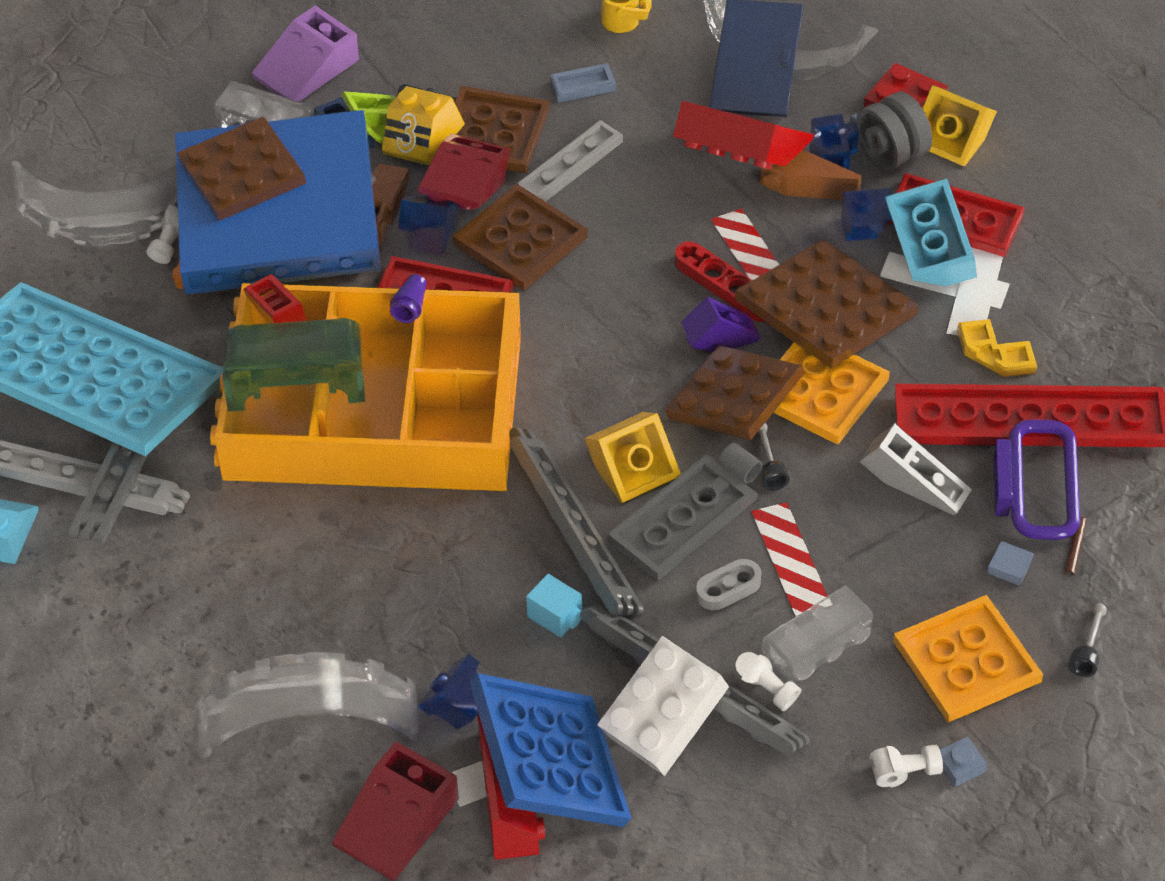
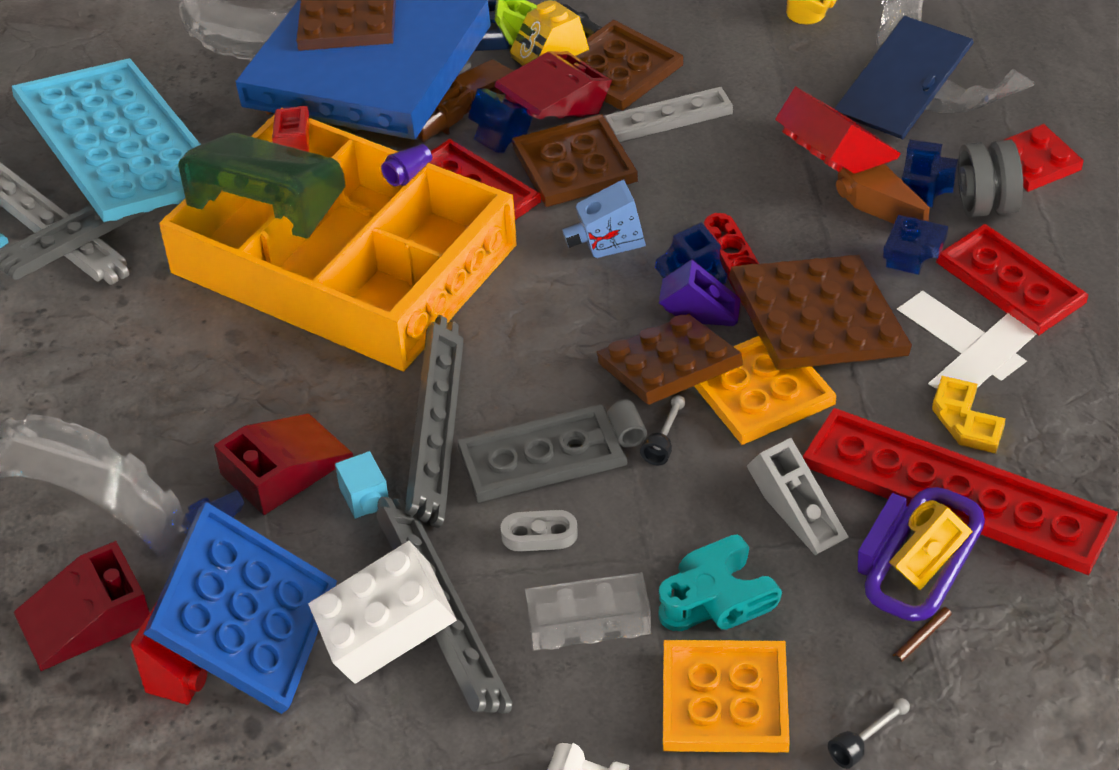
camera: 30 degrees right, 5 degrees down
(466, 612) = (278, 459): none -> dark red slope
(582, 83) = (730, 52): sand blue tile -> none
(599, 286) = (607, 222): none -> medium blue torso
(633, 456) = (533, 382): yellow slope -> none
(689, 290) = (695, 245): none -> clear blue brick
(745, 243) = (785, 233): sticker -> none
(758, 671) = (508, 621): white leg -> none
(790, 556) = (623, 527): sticker -> none
(900, 577) = (710, 591): none -> teal piece
(932, 234) = (962, 283): medium azure slope -> none
(956, 125) = (1062, 195): yellow slope -> none
(1010, 563) = (838, 622): sand blue tile -> none
(1050, 462) = (934, 541): none -> yellow plate

